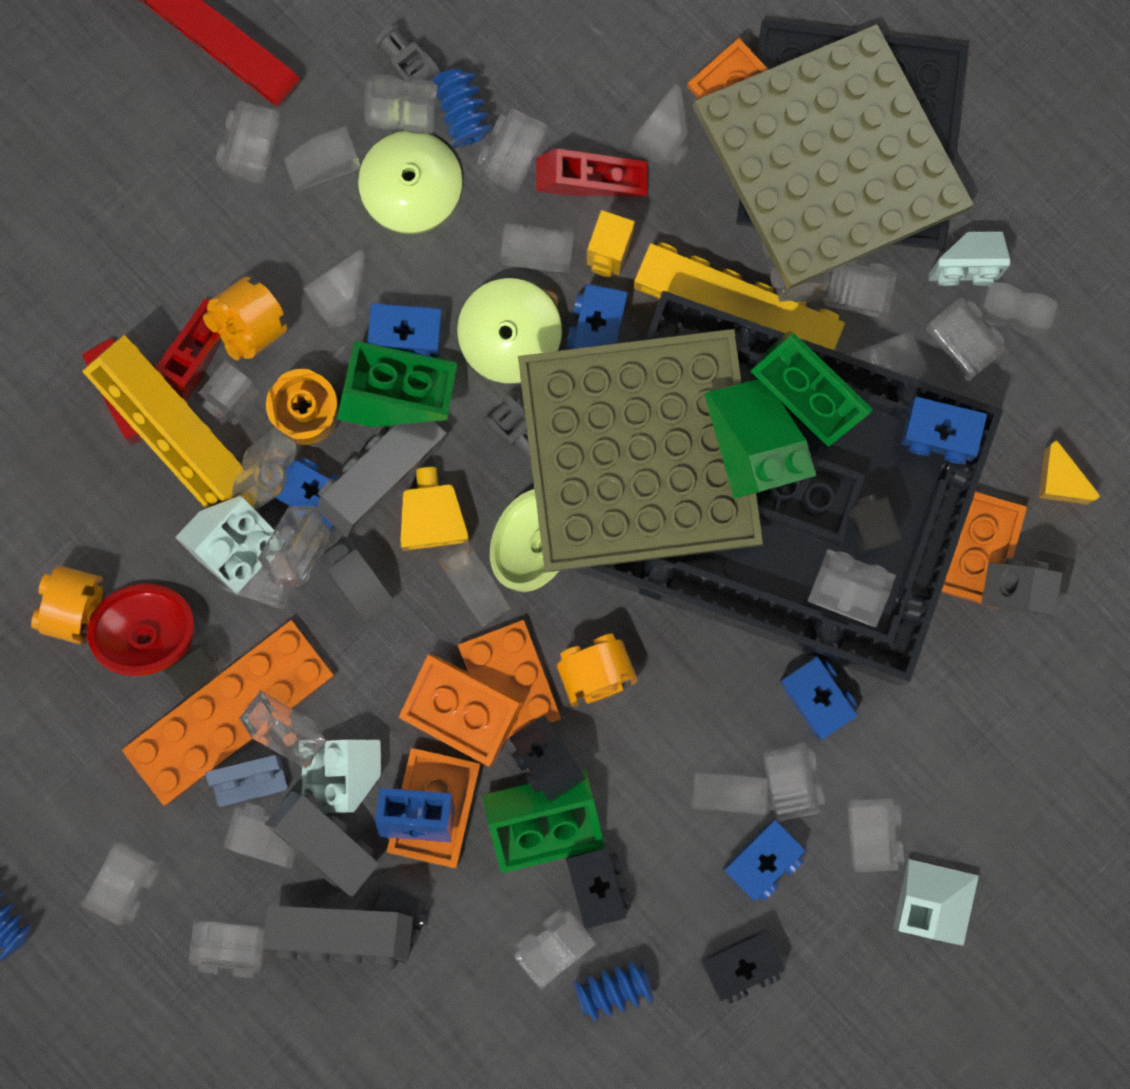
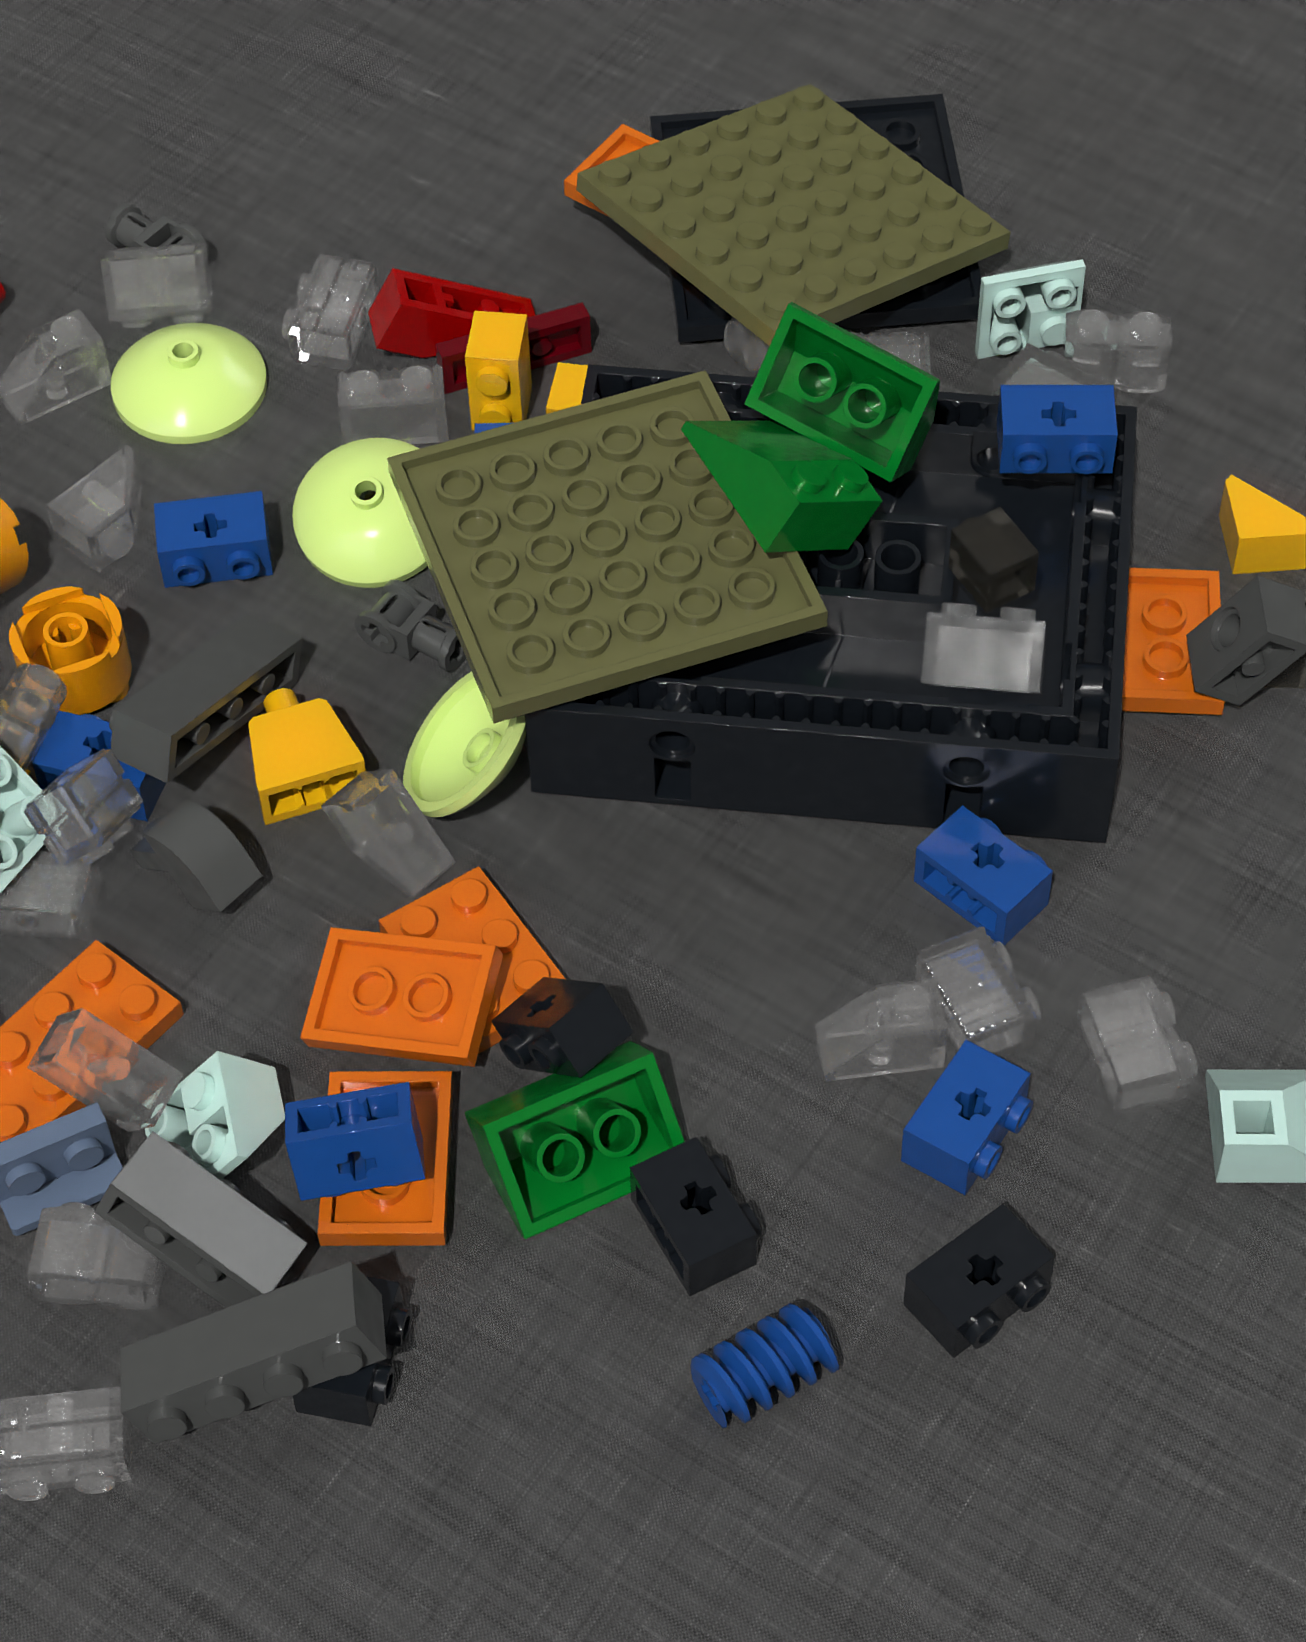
camera: 10 degrees left, 30 degrees down
(395, 387) = (196, 593): green slope -> none
(461, 107) = (248, 274): blue piece -> none
(553, 948) = (643, 1324): clear brick -> none
(596, 670) = (612, 895): light orange brick -> none
(657, 205) = (552, 339): none -> dark red plate
(664, 132) = (545, 255): clear slope -> none

